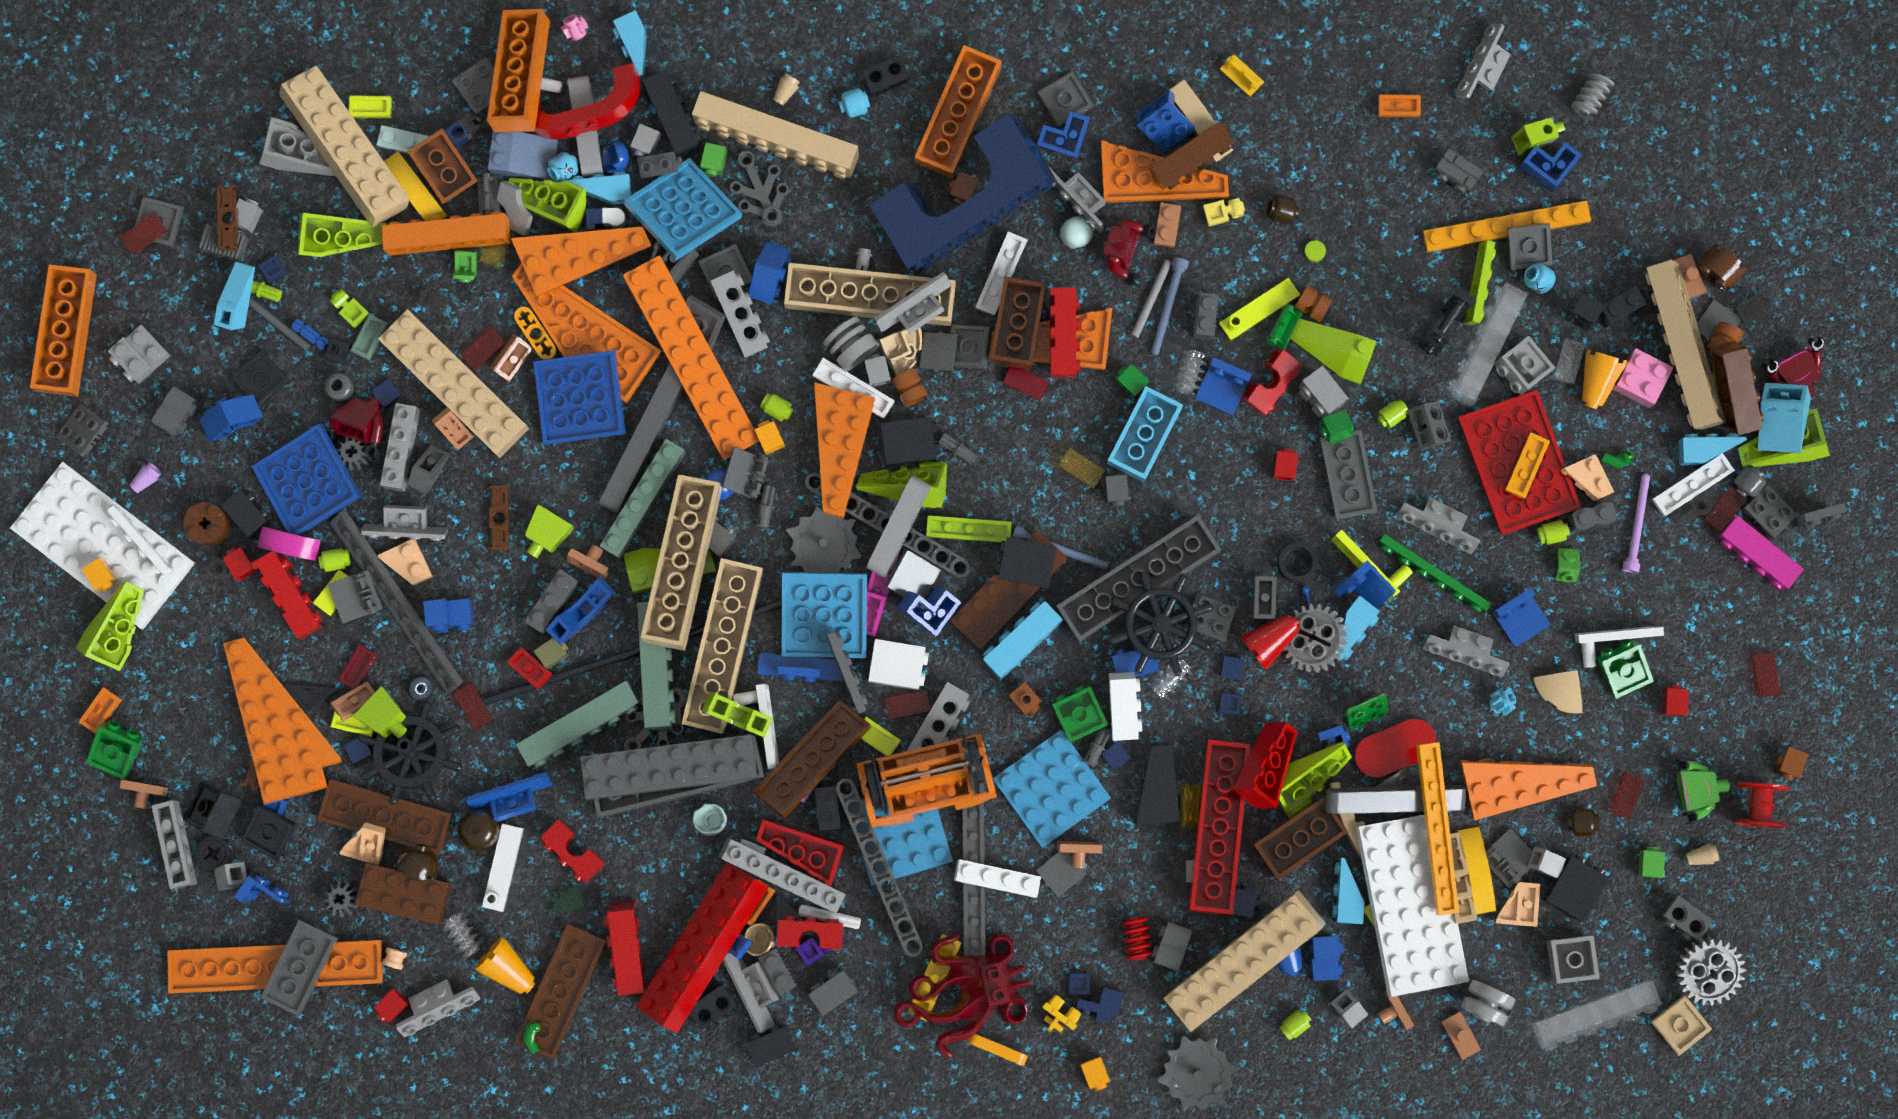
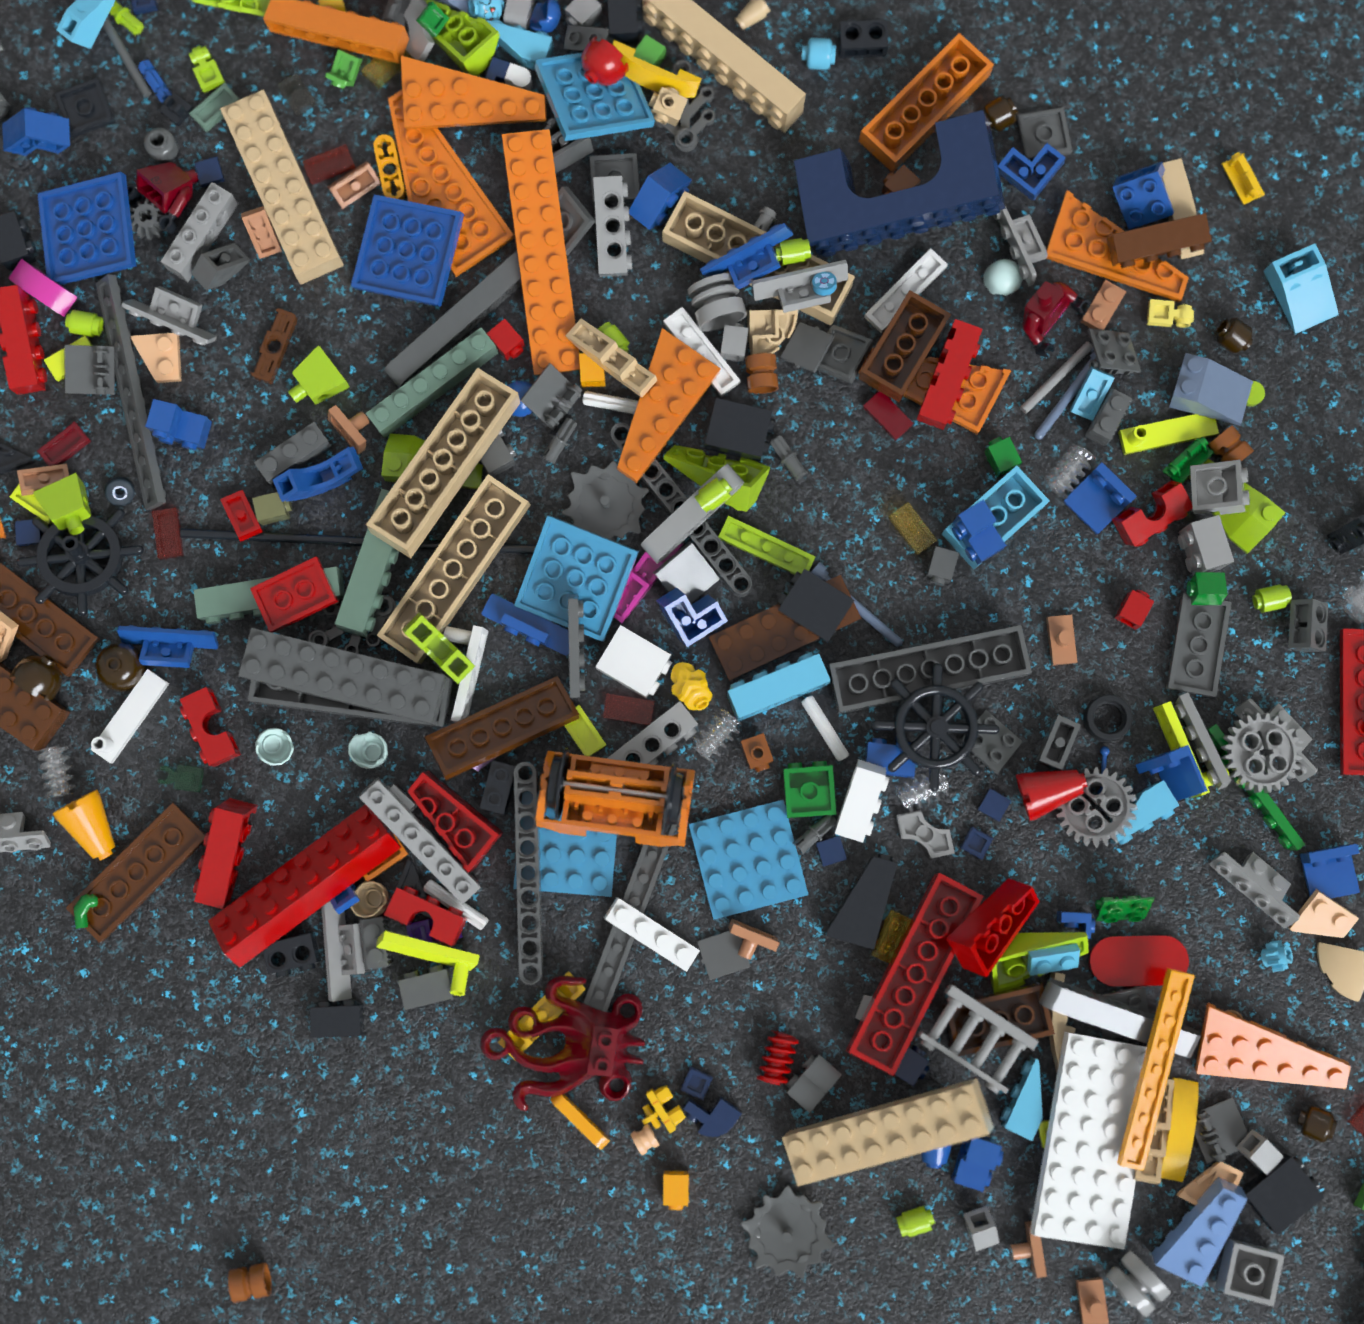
camera: 20 degrees right, 0 degrees up
(524, 197) = (432, 19): none -> green tile
(601, 716) = (294, 594): none -> red plate
(632, 846) = (274, 746): none -> light aqua hair
(681, 183) = (603, 63): none -> red cylinder
(690, 440) = (506, 340): none -> red brick
(723, 177) = (655, 77): none -> yellow slope
(754, 195) = (667, 106): none -> tan brick
(783, 423) = (611, 358): none -> tan slope
(795, 458) = (609, 402): none -> white axle
(853, 959) = (460, 960): none -> neon yellow piece
(867, 301) = (751, 259): none -> blue bracket
(897, 280) = (793, 251): none -> lime brick
(911, 505) = (714, 494): none -> lime brick
(933, 298) = (824, 283): none -> dark azure tile
(951, 666) = (690, 686): none -> yellow head
(987, 698) = (716, 735): none -> clear piece
(1022, 97) = (1000, 113): none -> dark brown head
(1055, 1044) = (644, 1139): none -> light nougat wheel
(1072, 658) = (825, 728): none -> white axle
(1135, 454) = (978, 533): none -> blue brick
(1176, 710) = (934, 840): none -> light grey tile
(1185, 302) = (1092, 393): none -> medium azure plate
(1189, 261) = (1113, 352): none -> dark grey hinge
(1236, 512) = (1061, 640): none -> nougat tile
(1280, 262) = (1210, 390): none -> sand blue slope
(1301, 843) = (999, 1027): none -> light grey fence
(1315, 341) = (1219, 487): none -> light grey plate
(1324, 150) = (1303, 288): none -> medium azure slope
(1325, 773) = (1053, 959): none -> medium azure plate
(1384, 559) = (1205, 749): none -> light grey plate
(1412, 552) = (1240, 755): none -> light grey gear
(1522, 951) = (1200, 1236): none -> medium blue wedge
(1528, 656) = (1324, 917): none -> light nougat wing

